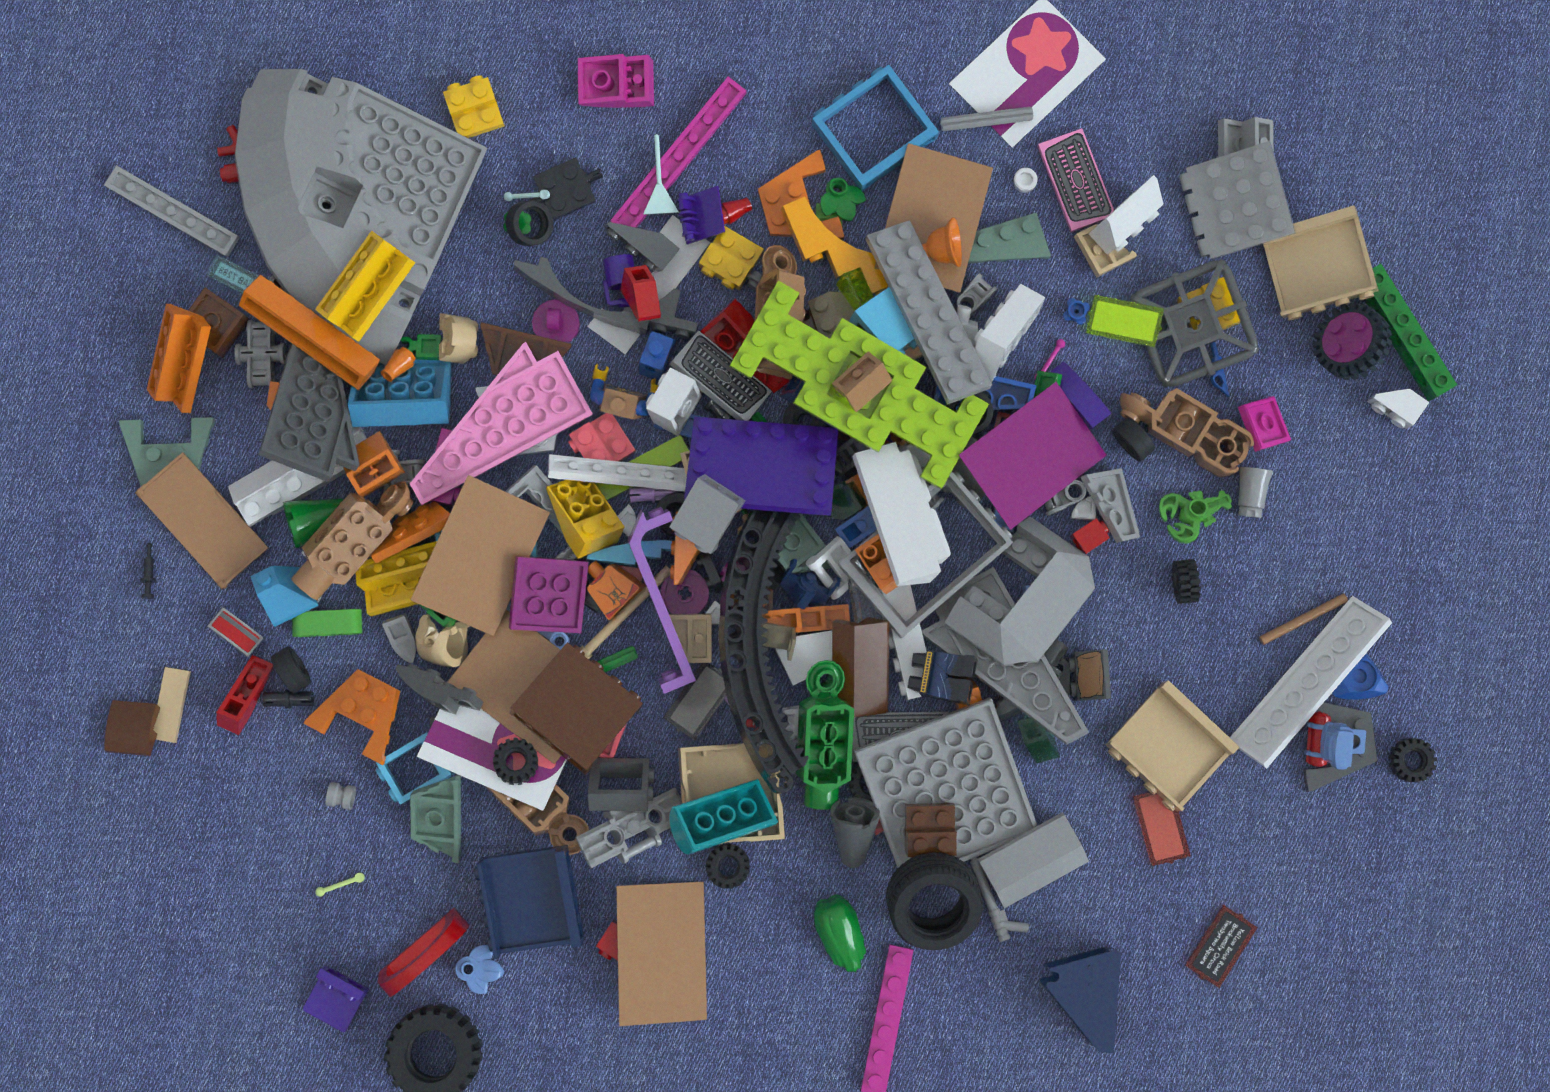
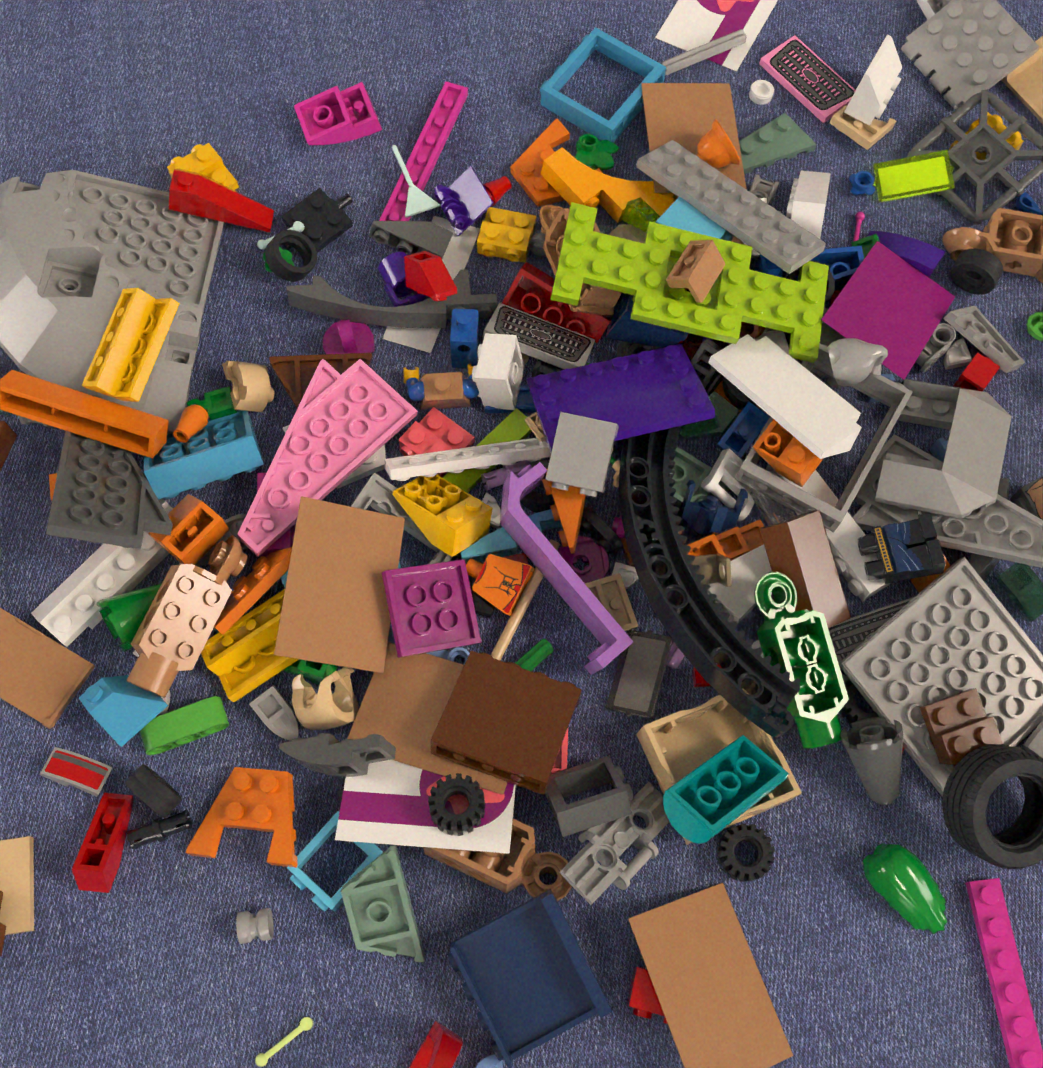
camera: 15 degrees left, 15 degrees down
(260, 354) = (34, 462): light grey axle -> none
(476, 142) = (207, 198): none -> red wedge
(966, 503) = (855, 359): none -> light grey piece

